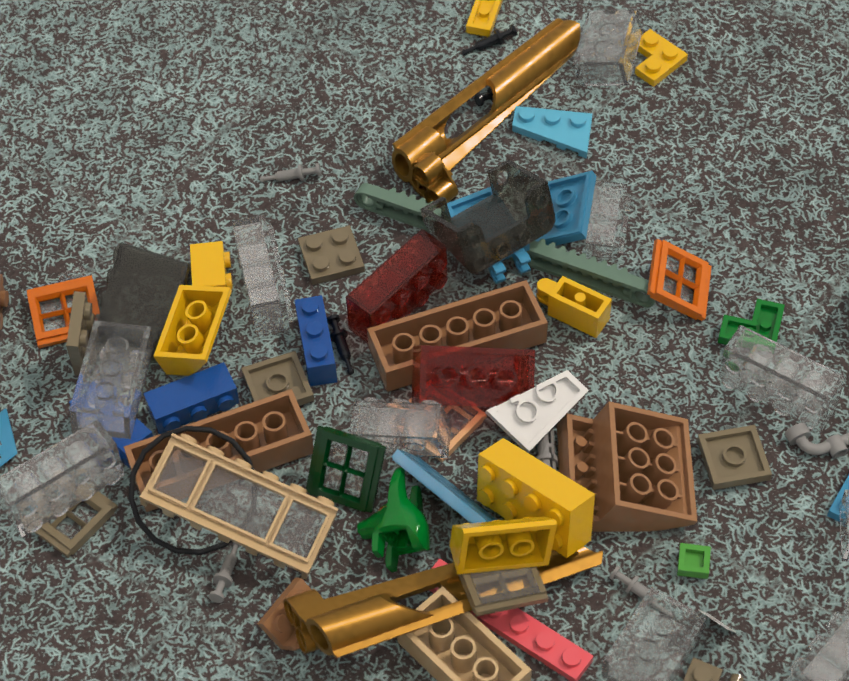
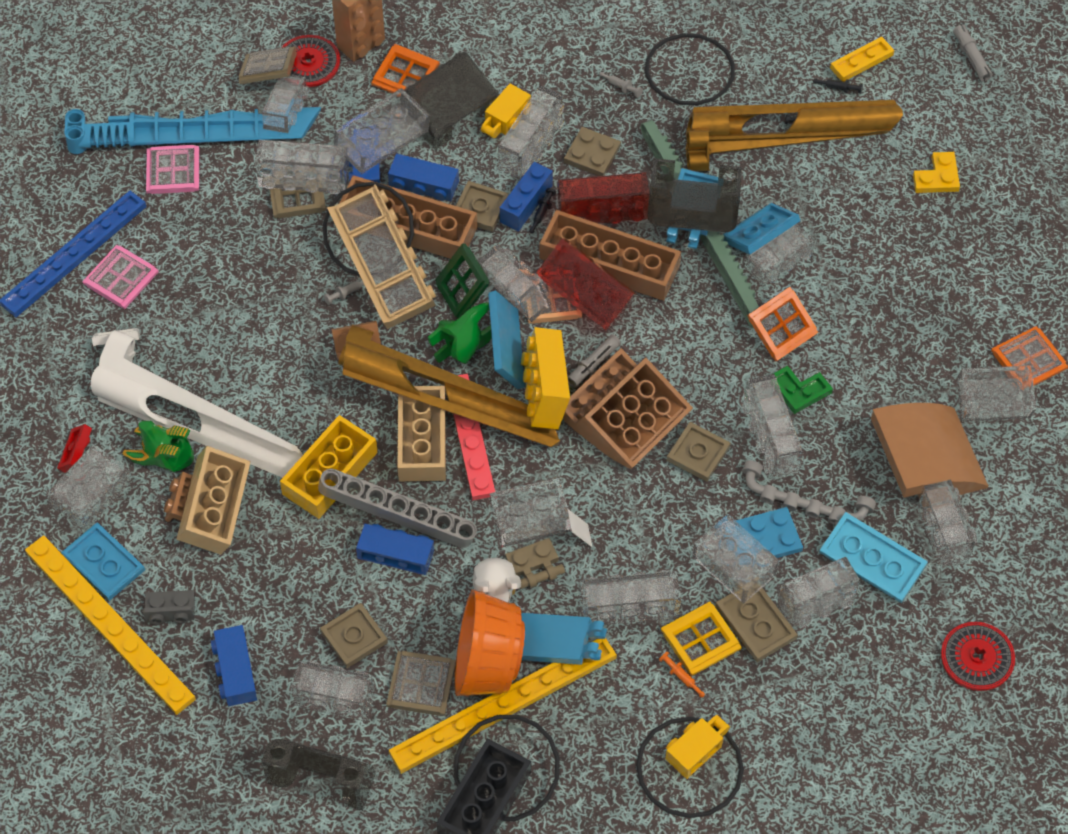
camera: 40 degrees right, 5 degrees up
(79, 329) = (389, 83): dark tan plate -> none
(191, 328) = (455, 132): yellow slope -> none
(337, 157) = (691, 36): none -> black piece
(502, 544) = (492, 385): yellow slope -> none
(503, 589) = (479, 405): piece -> none
(538, 410) = (605, 333): white wing -> none
(559, 127) = (819, 173): medium azure wing -> none
(575, 304) = (700, 290): yellow brick -> none
(608, 47) = (905, 143): clear brick -> none
(633, 585) = (560, 473): light grey piece -> none
(693, 561) = (608, 488): bright green plate -> none

